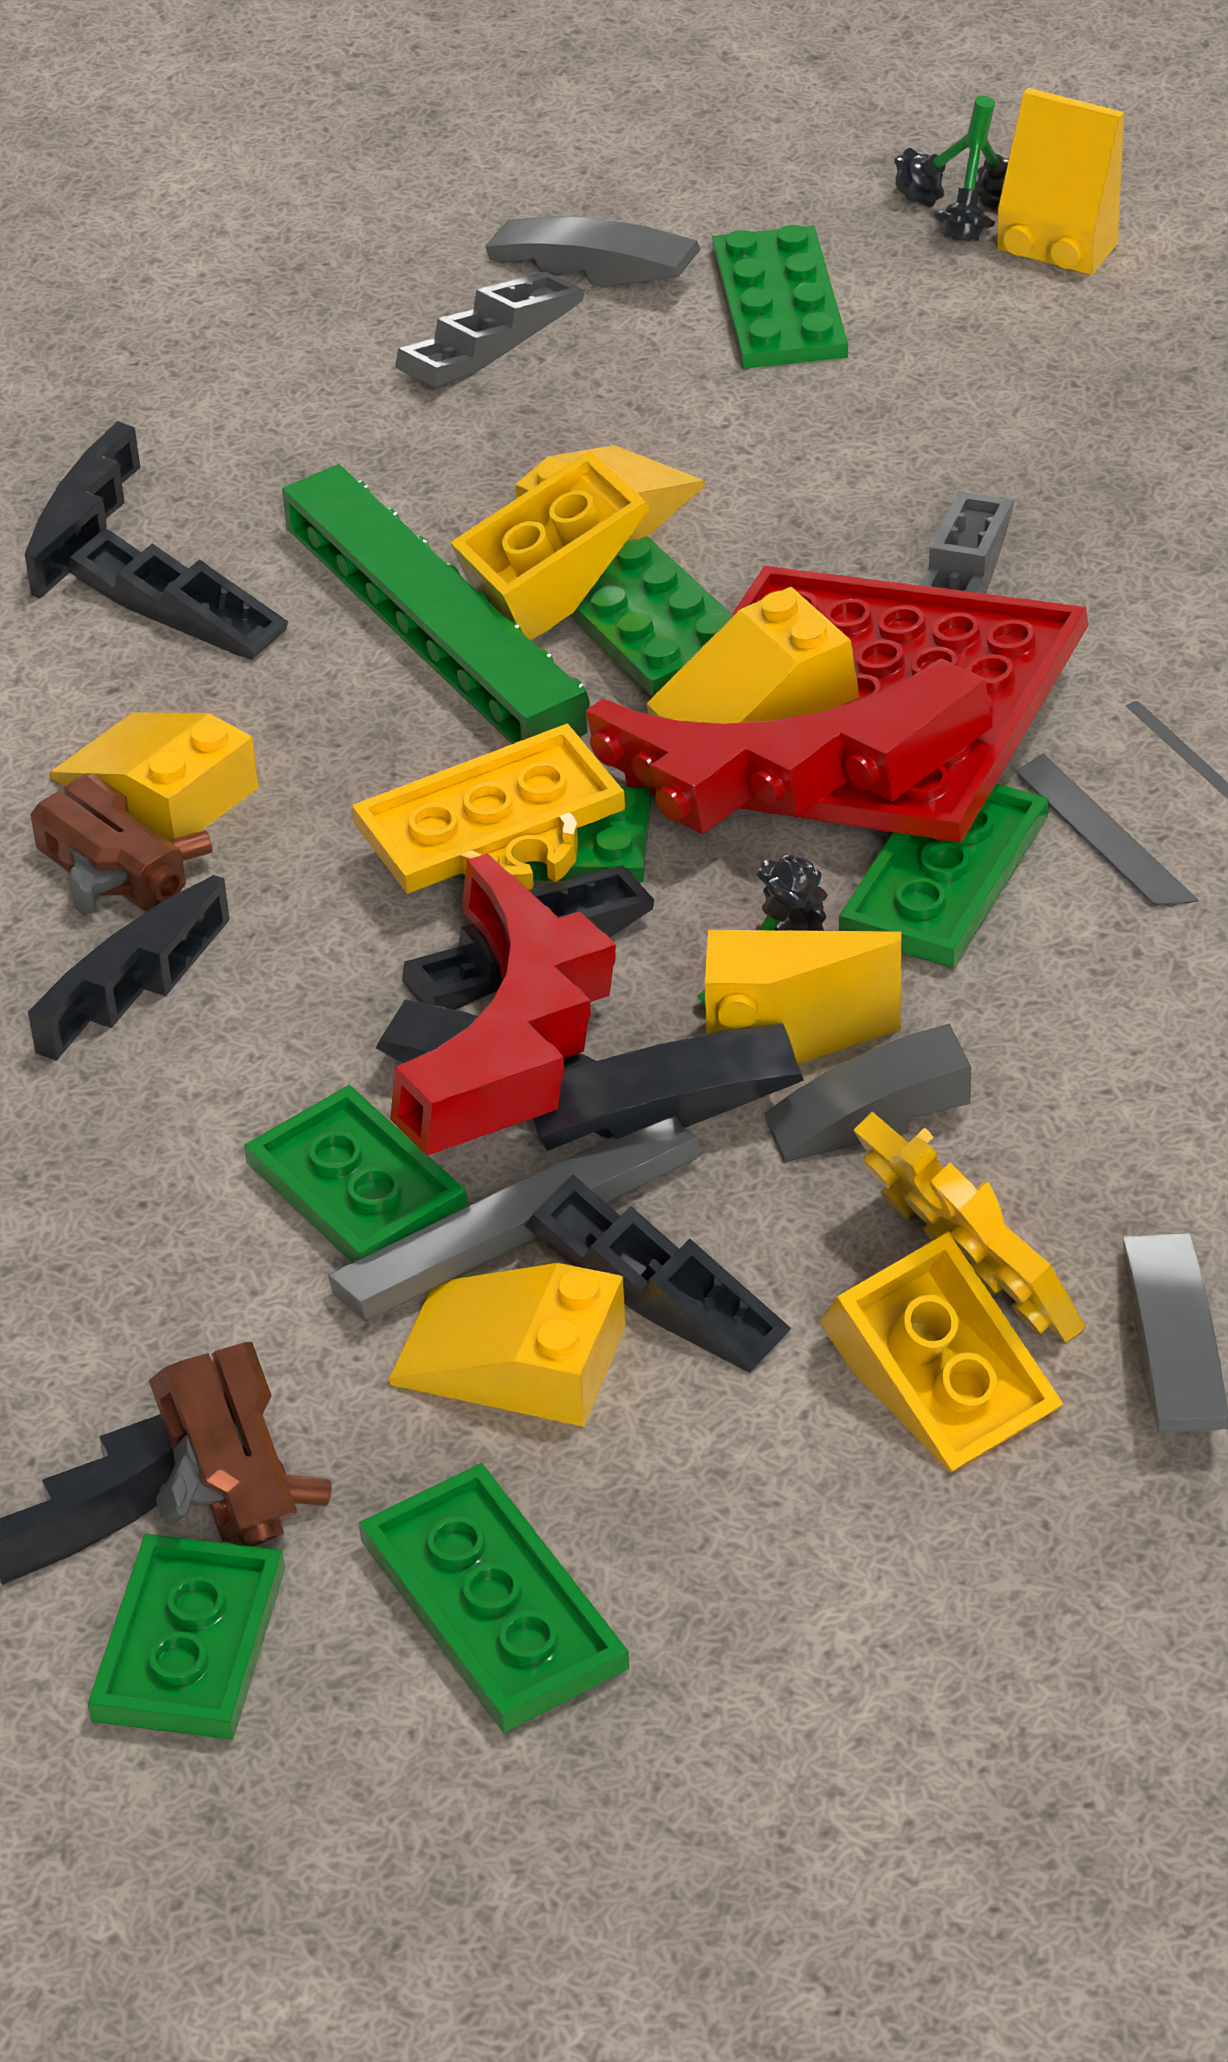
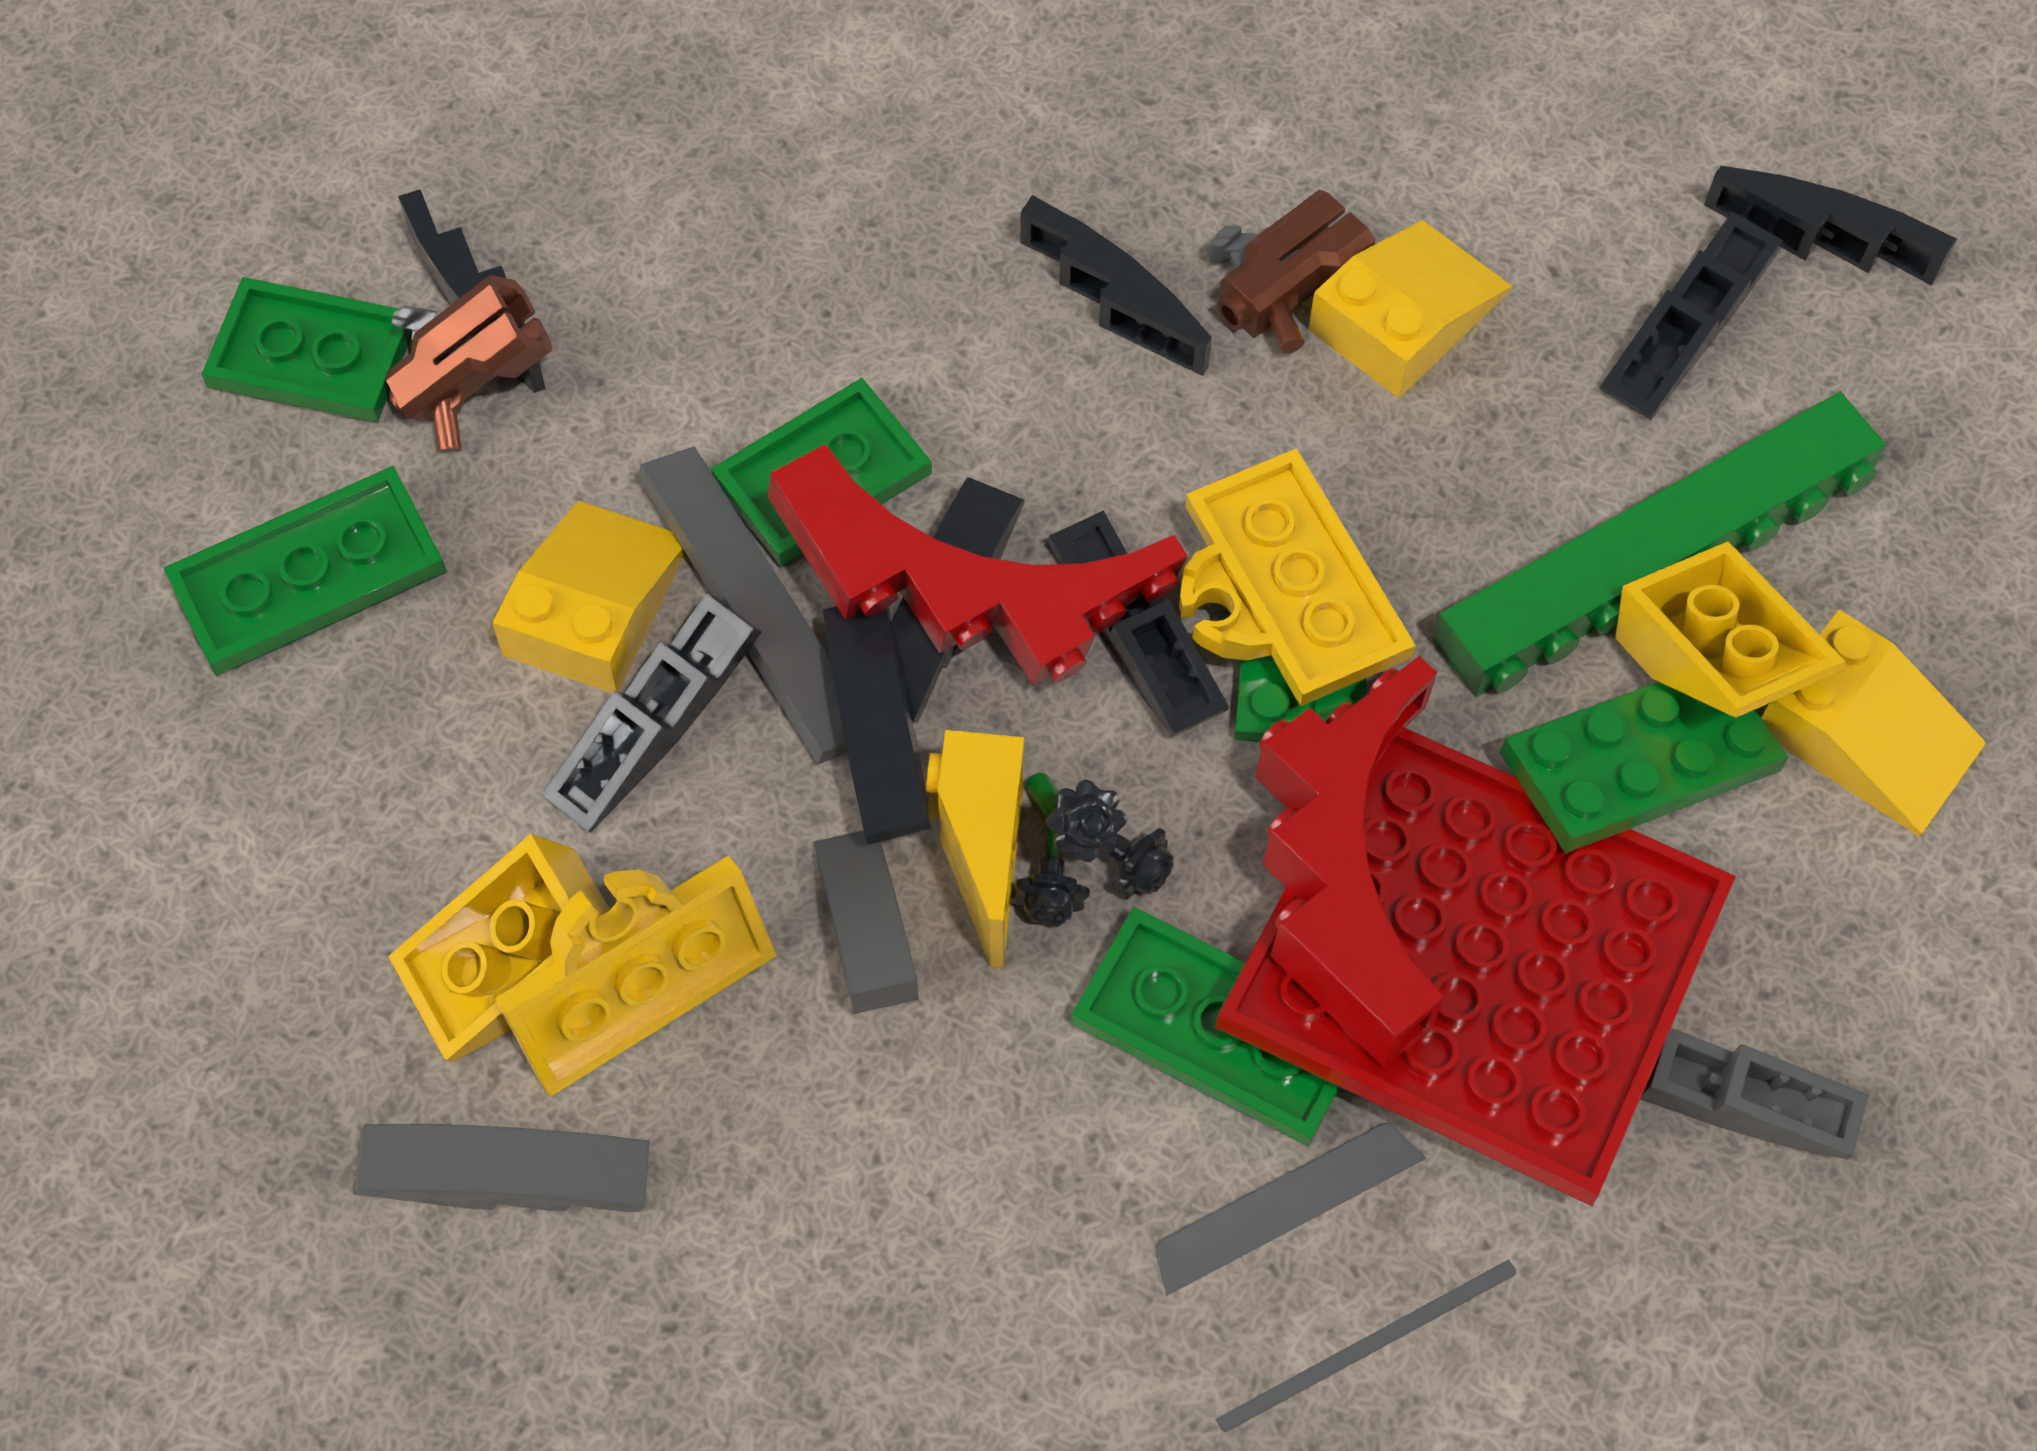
camera: 90 degrees right, 20 degrees up
(764, 666) = (1484, 837): yellow slope -> none

